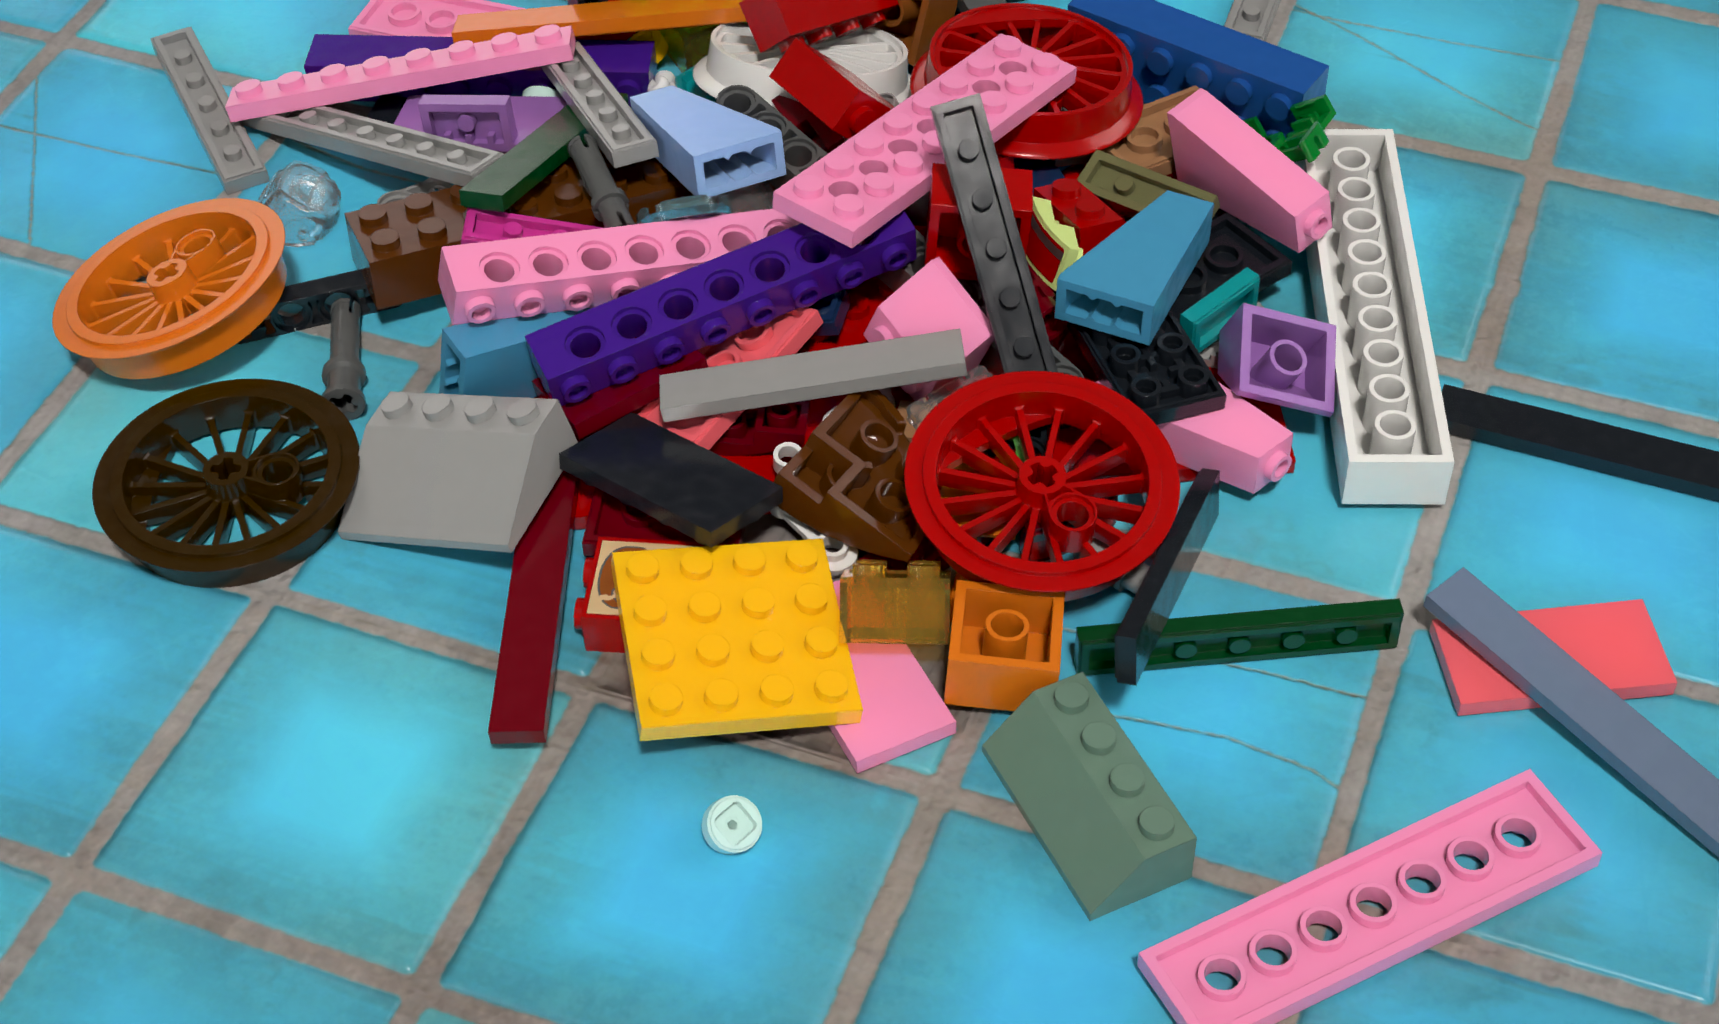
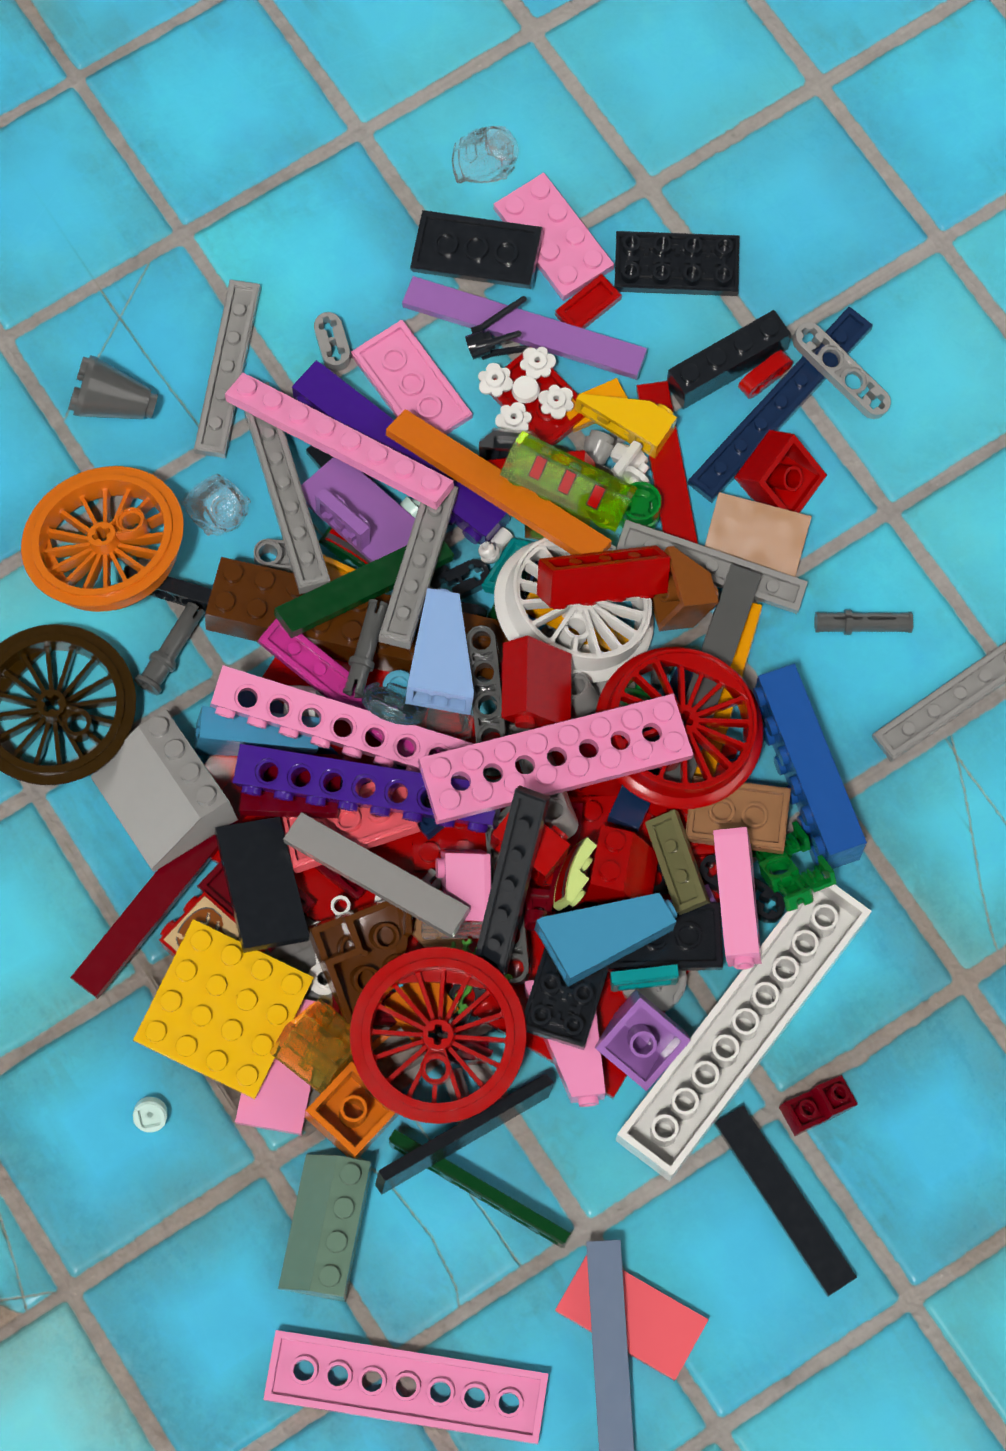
camera: 35 degrees right, 25 degrees up
(73, 175) = (110, 393): none -> dark grey cone
(306, 21) = (338, 340): none -> light grey beam
(1521, 341) = (818, 1105): none -> dark red slope

